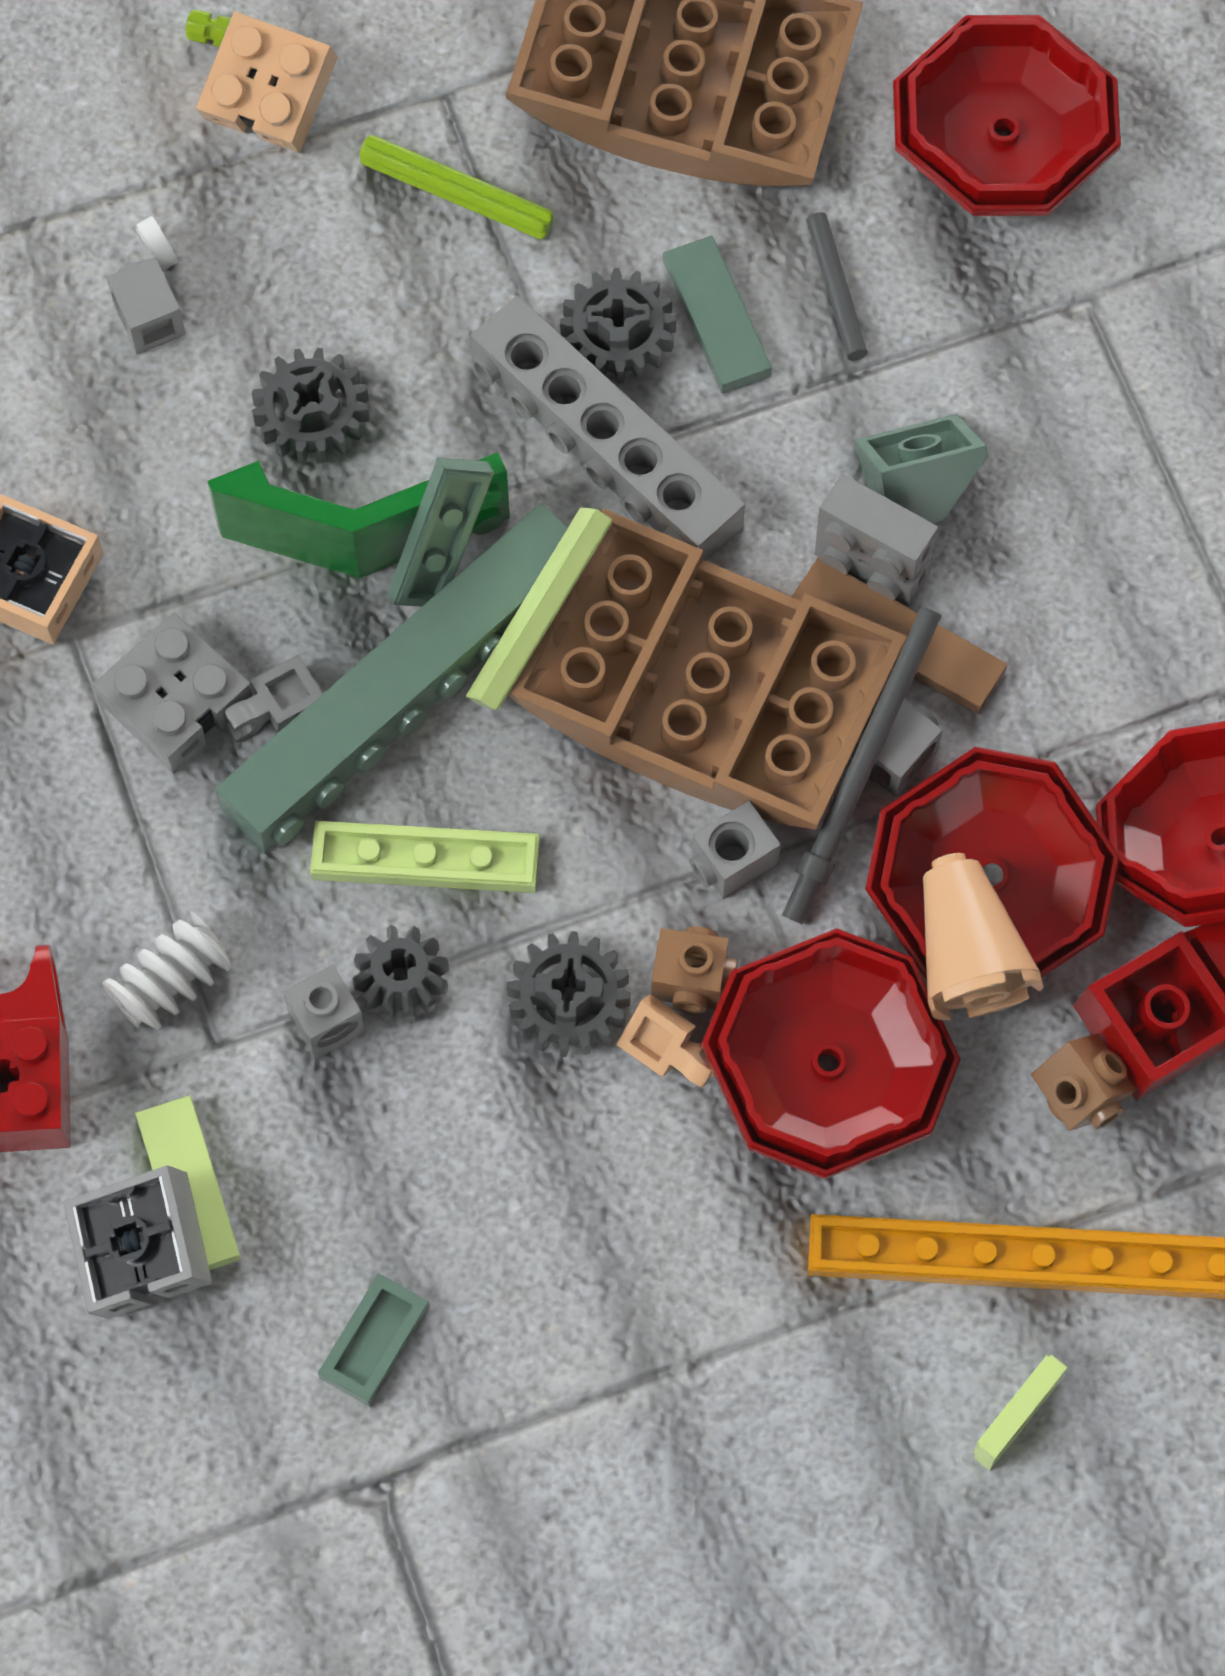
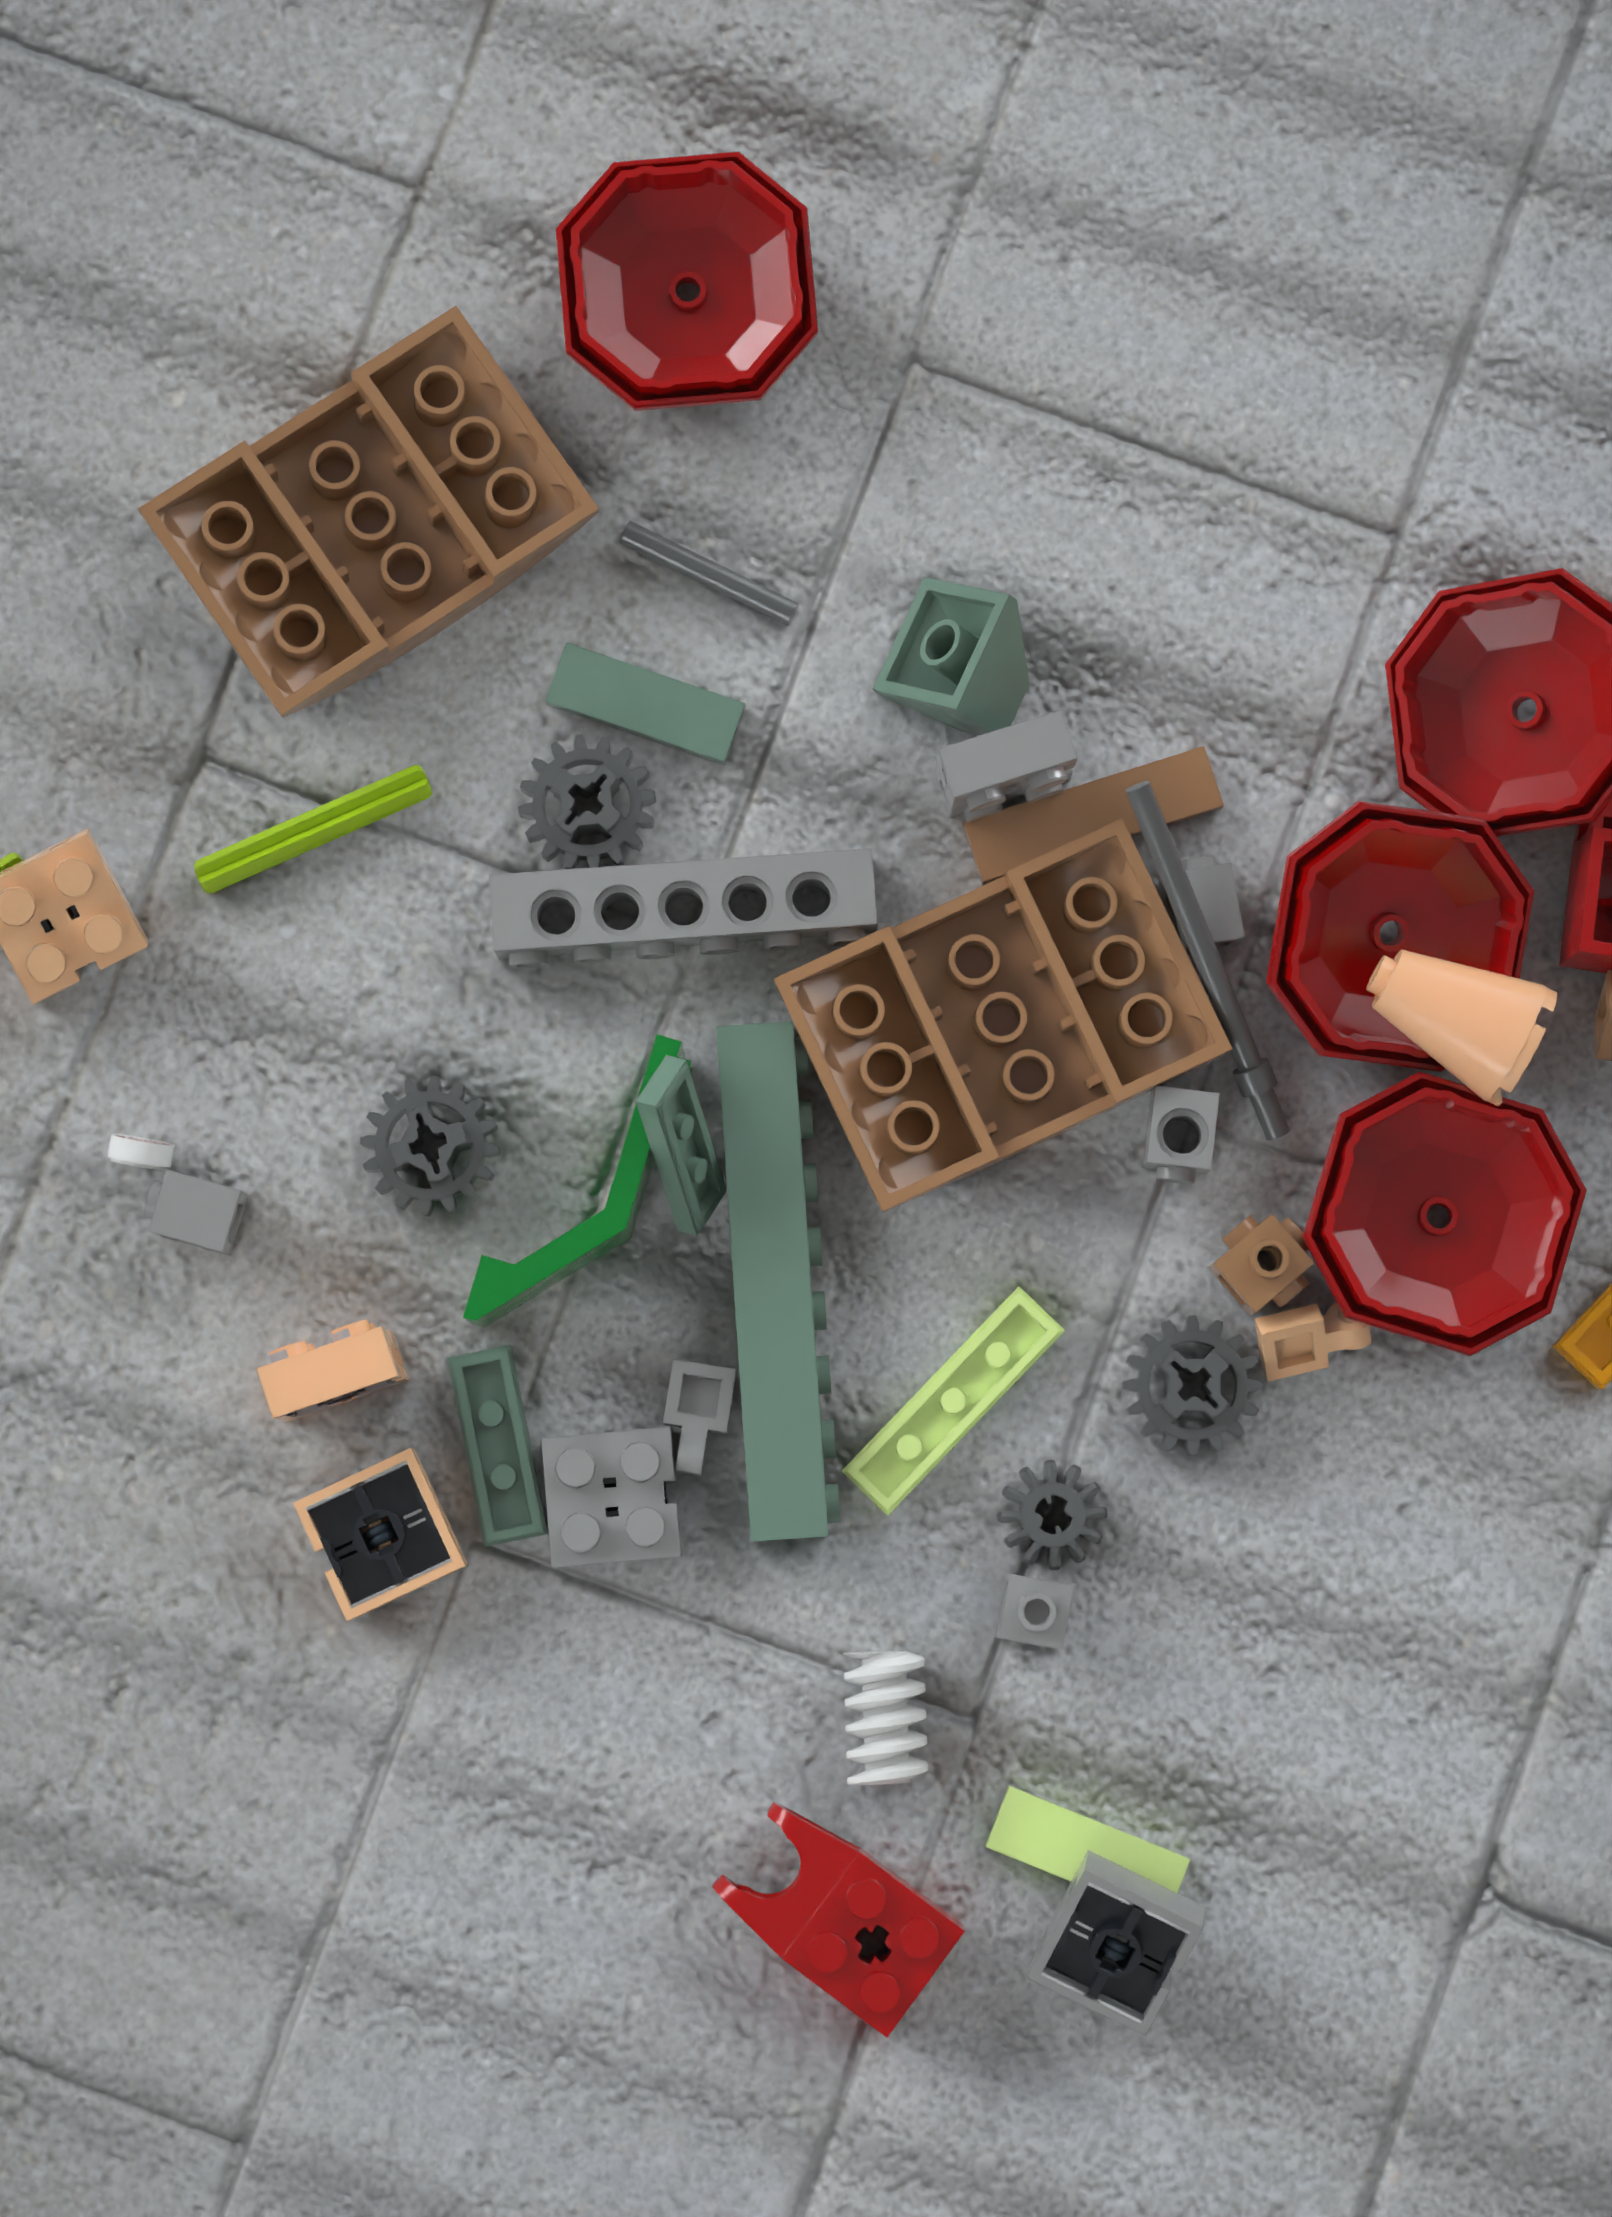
camera: 50 degrees left, 15 degrees up
(107, 451) = (315, 1379): none -> light nougat piece
(149, 597) = (497, 1445): none -> sand green tile
(373, 1339) = (1356, 1803): sand green tile -> none
(539, 608) = (826, 1118): yellowish green tile -> none

